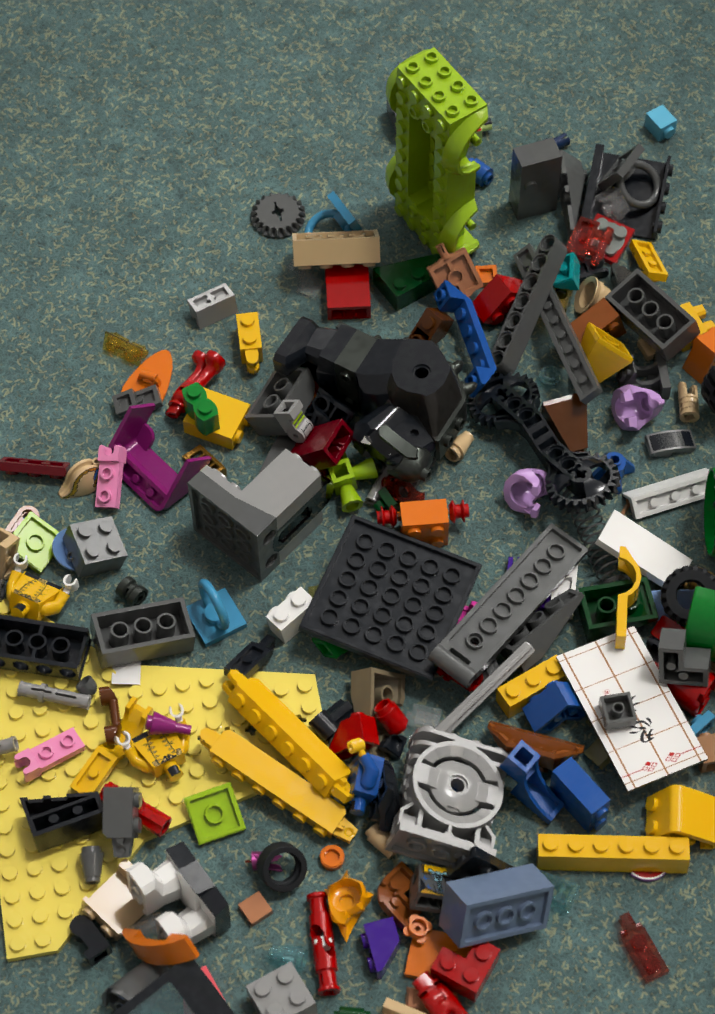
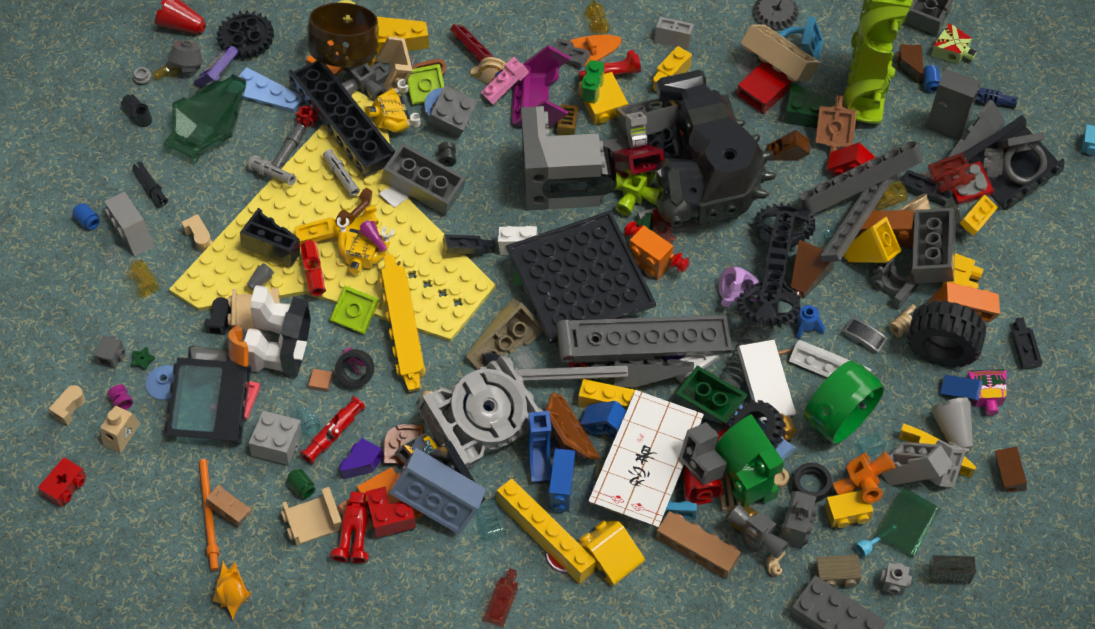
camera: 45 degrees right, 0 degrees up
(49, 754) = (303, 201): bright pink plate -> none
(87, 686) = (362, 182): dark grey hinge -> none
(121, 818) = (294, 262): dark grey hinge -> none
(215, 614) = (477, 205): dark azure tile -> none
(289, 735) = (435, 301): yellow hinge -> none
(328, 720) = (467, 315): black piece -> none
(332, 857) = (391, 391): orange tile -> none
(346, 903) = (366, 419): light orange hair -> none
(355, 727) = (472, 333): red slope -> none
(363, 777) = (449, 359): blue torso -> none
(387, 801) = (450, 377): black slope -> none
(390, 716) = (505, 341): red brick -> none
(417, 921) = (392, 463): orange plate -> none
(454, 301) = (818, 139): blue slope -> none
(459, 446) = (727, 228): tan cone -> none
(486, 273) = (867, 142): orange tile -> none
(569, 273) = (914, 180): teal slope -> none
(617, 710) = (632, 450): dark grey piece -> none
(627, 565) = (711, 393): yellow piece -> none
(635, 406) = (864, 294): lavender piece -> none

